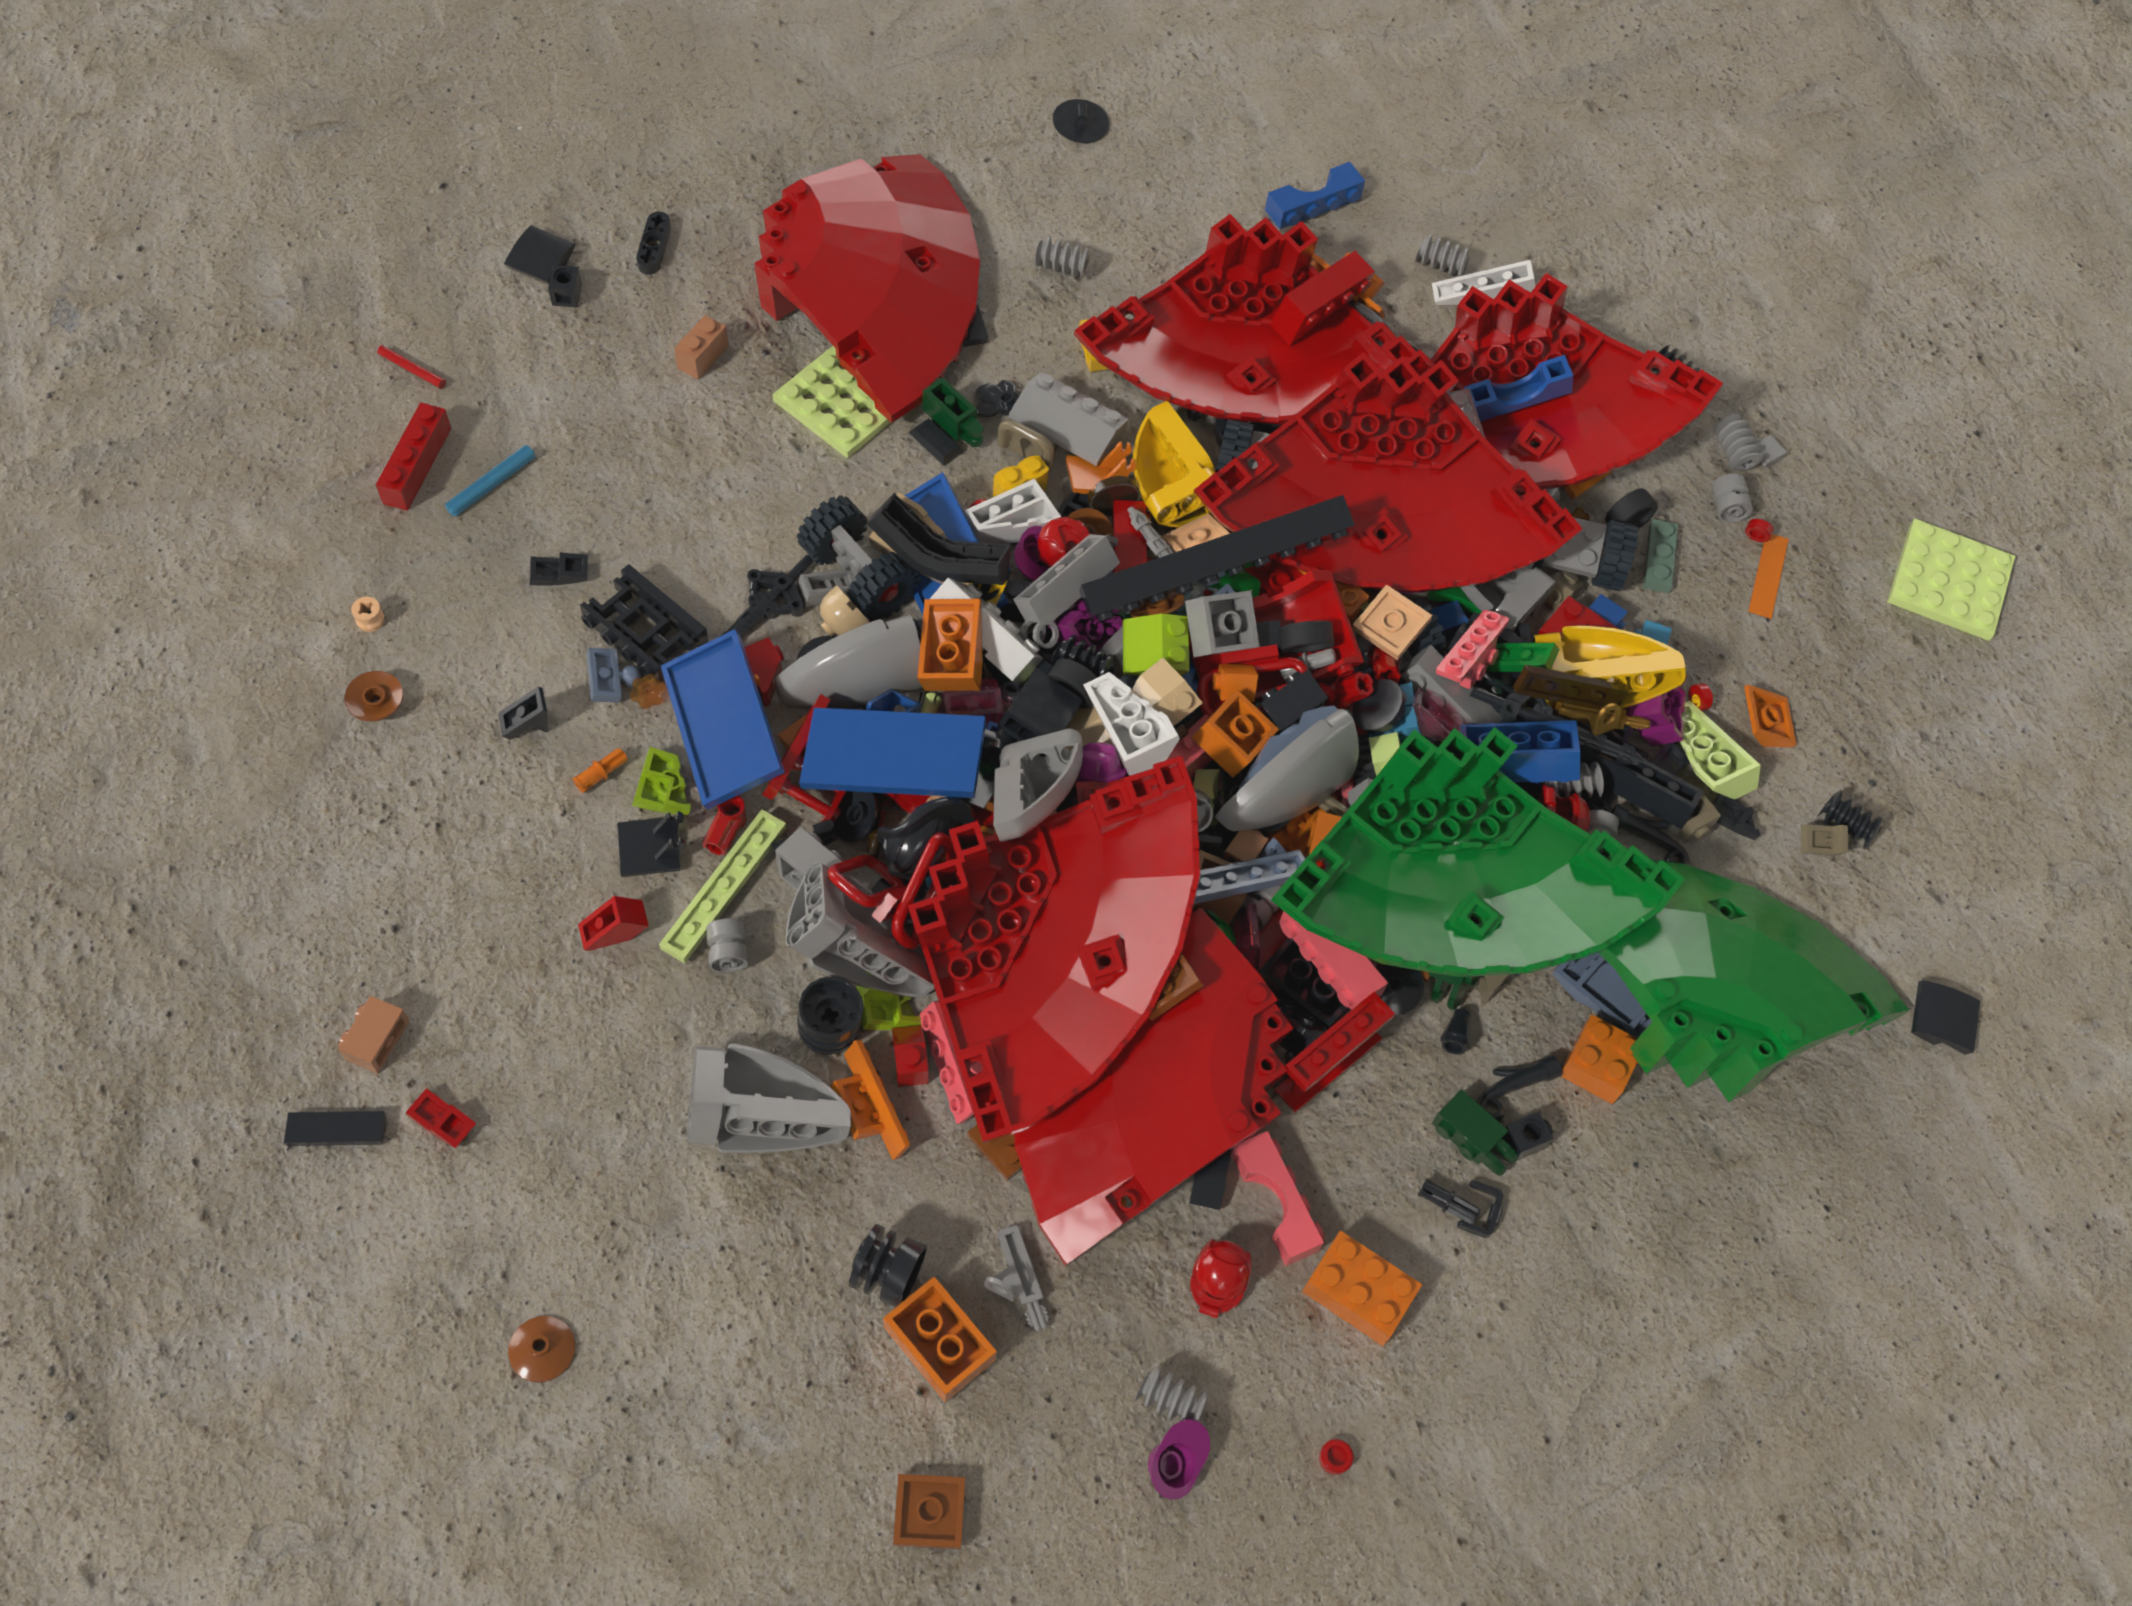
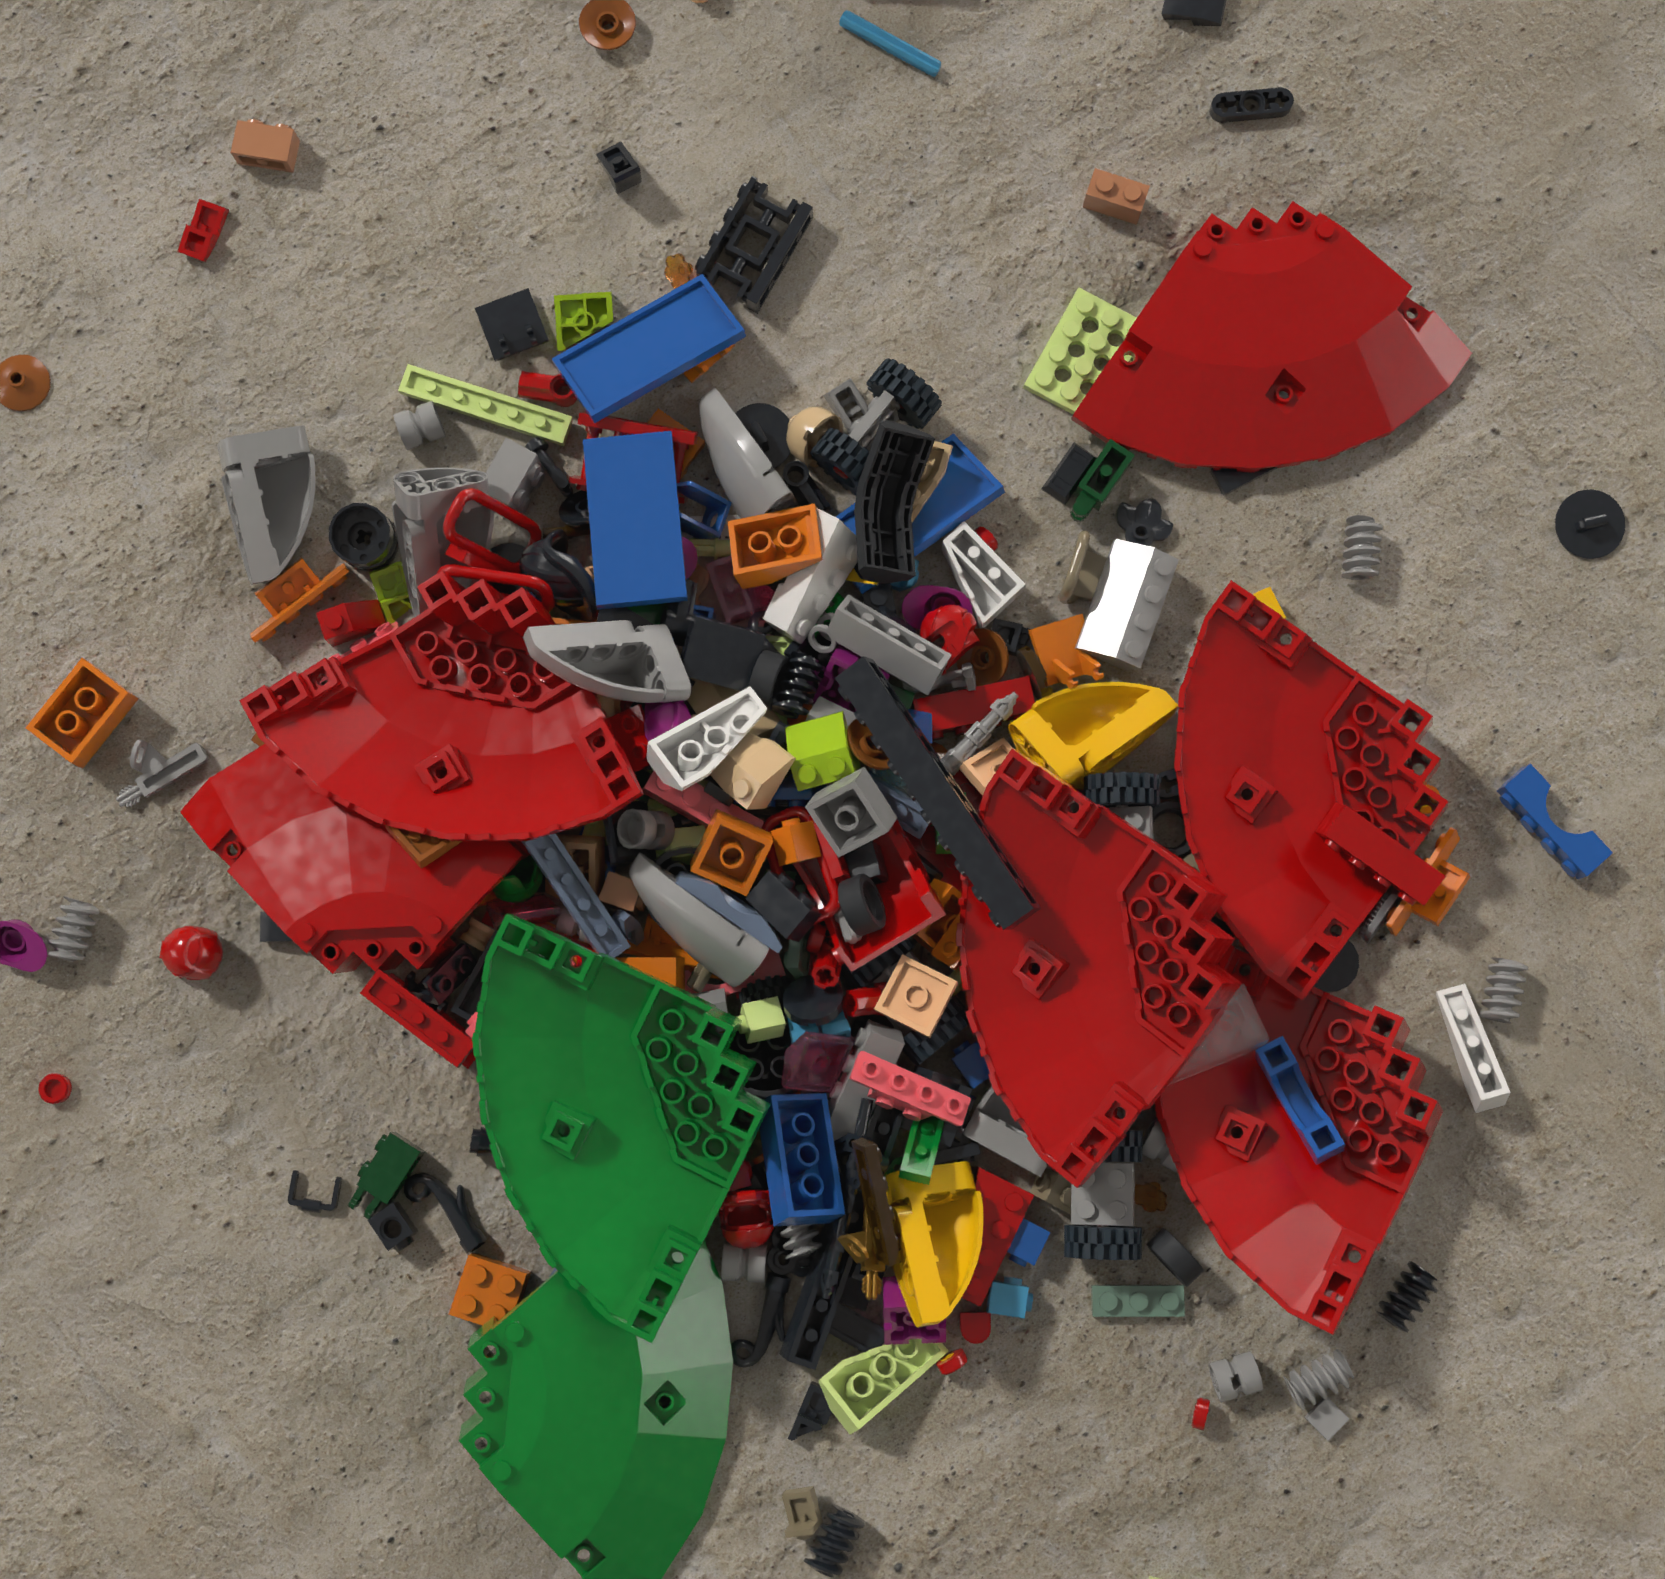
camera: 85 degrees right, 20 degrees up
(335, 1128) = (176, 146): black tile -> none
(564, 570) = (800, 143): black slope -> none
(565, 286) = (1152, 42): black brick -> none
(599, 770) = (582, 254): orange axle -> none
(606, 676) = (686, 227): sand blue plate -> none
(613, 923) = (421, 318): red slope -> none
(765, 604) = (810, 352): black bar -> none
(766, 663) = (732, 373): red slope -> none
(887, 1265) = (135, 650): black wheel -> none
(1026, 470) = (1040, 578): yellow brick -> none
(1261, 1163) = (249, 1017): coral arch -> none
(1362, 1288) = (207, 1086): orange brick -> none
(1449, 1201) = (312, 1157): black axle -> none
(1704, 819) = (785, 1373): dark tan bracket -> none
(1768, 576) = (1147, 1431): orange sticker -> none
(1770, 718) = (946, 1442): orange slope -> none

